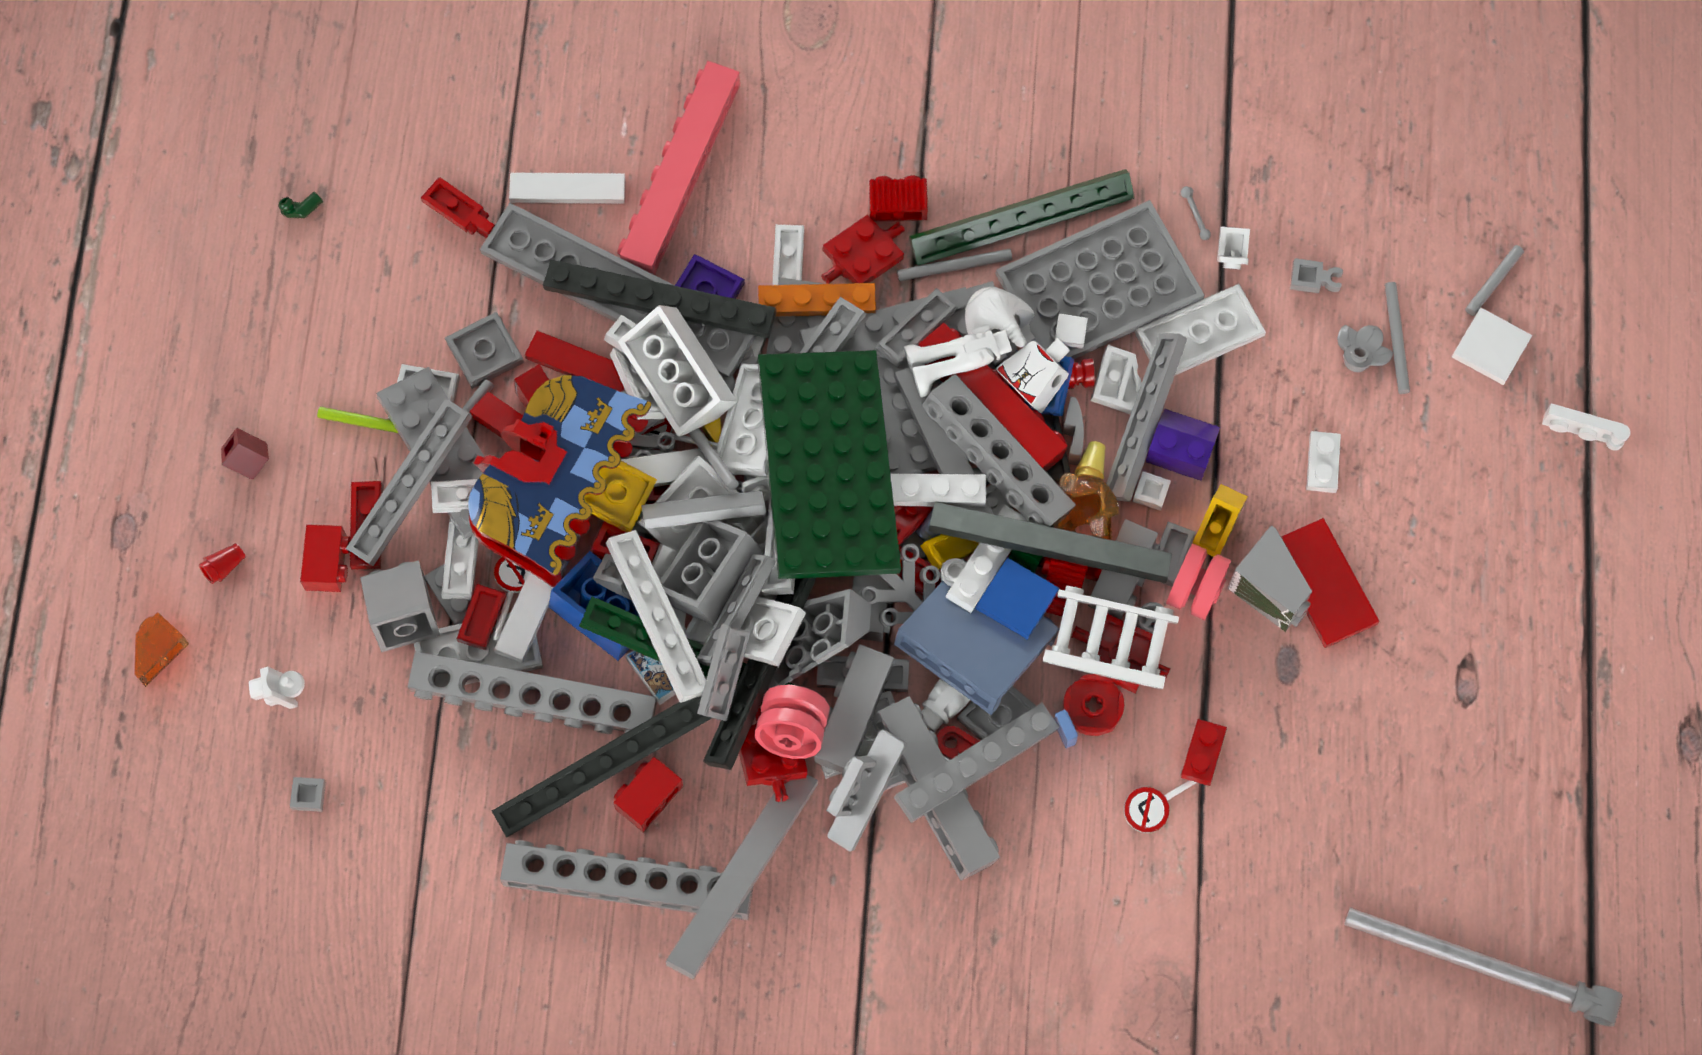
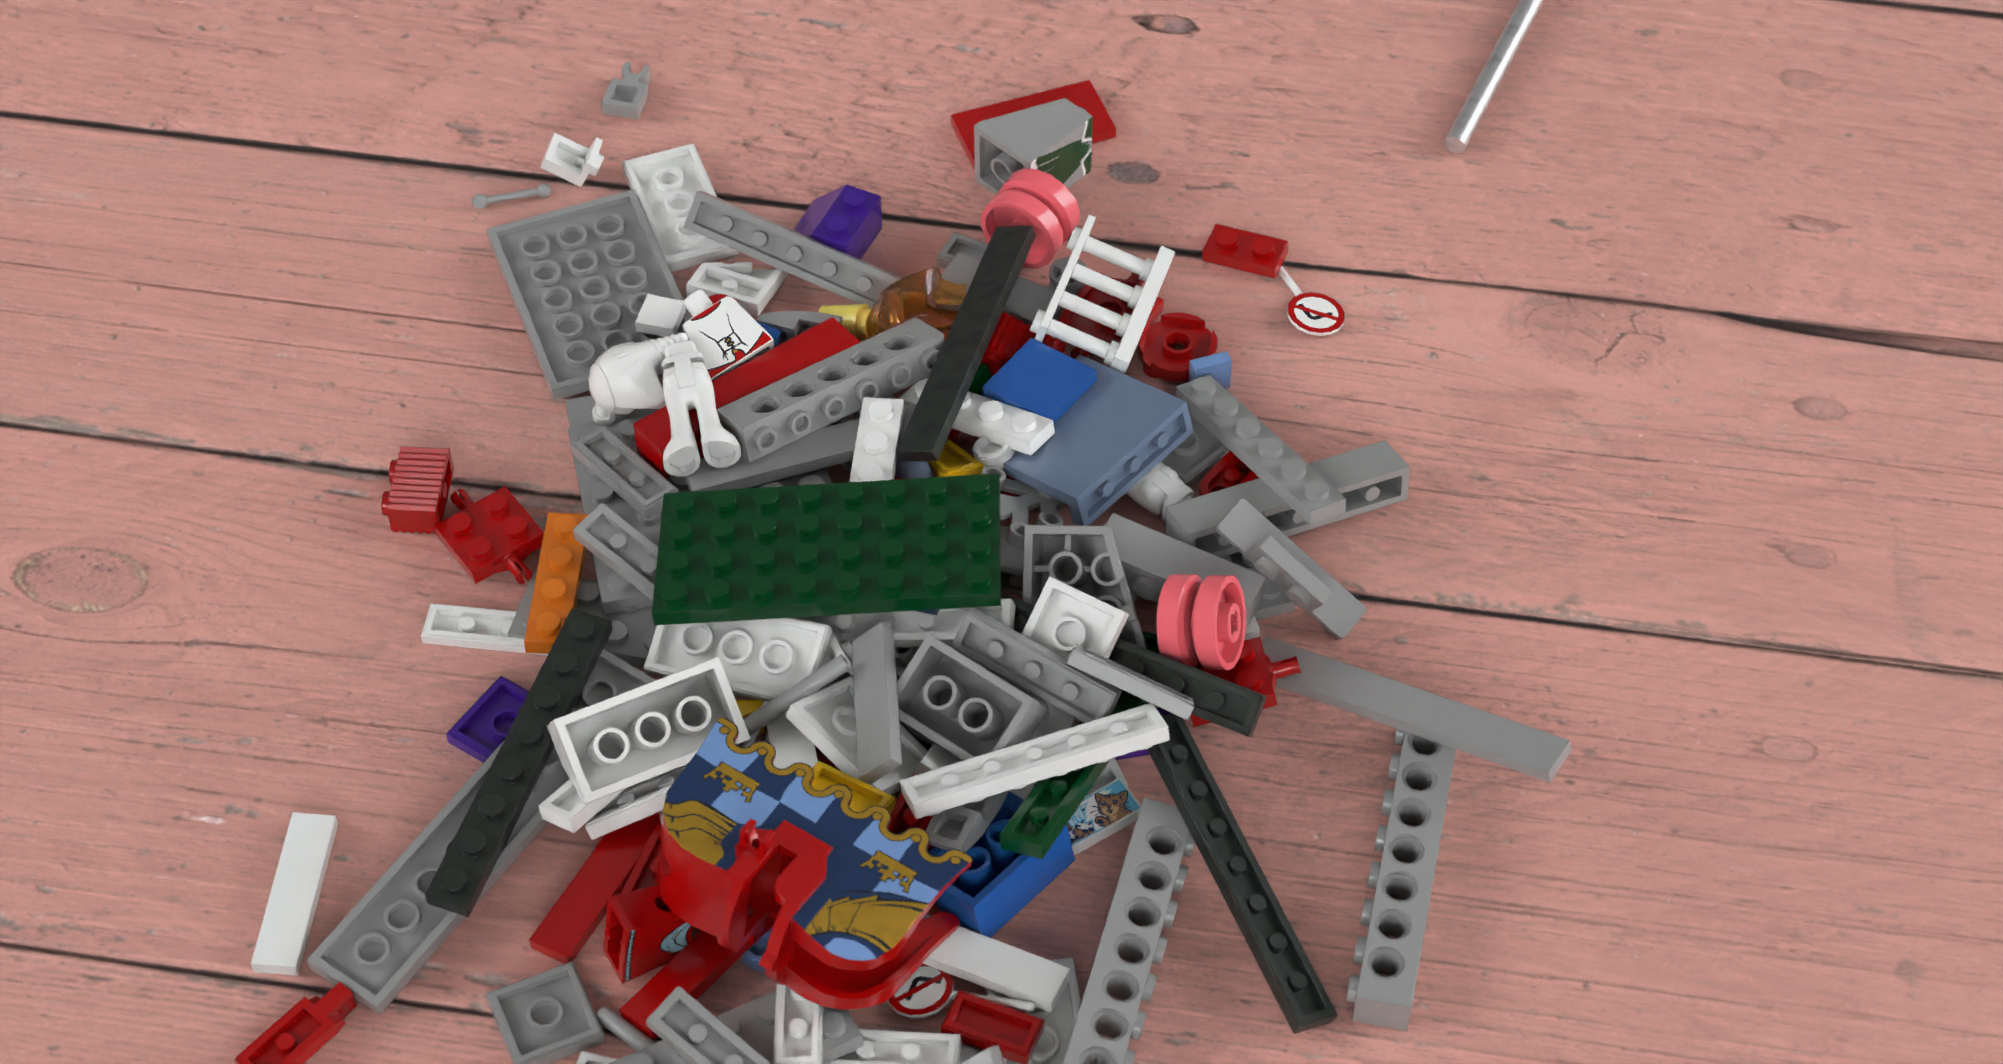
camera: 85 degrees left, 20 degrees down
(647, 793) = (1282, 830): red brick -> none
(680, 167) = (301, 737): coral brick -> none
(954, 264) = (529, 437): light grey bar -> none
(1021, 217) = (479, 364): plate -> none
(1151, 490) = (896, 260): white plate -> none
(1219, 520) = (942, 202): yellow slope -> none
(1323, 461) = (875, 112): white plate -> none
(1363, 347) = (731, 61): light grey plate -> none
(1397, 338) = (715, 32): light grey bar -> none

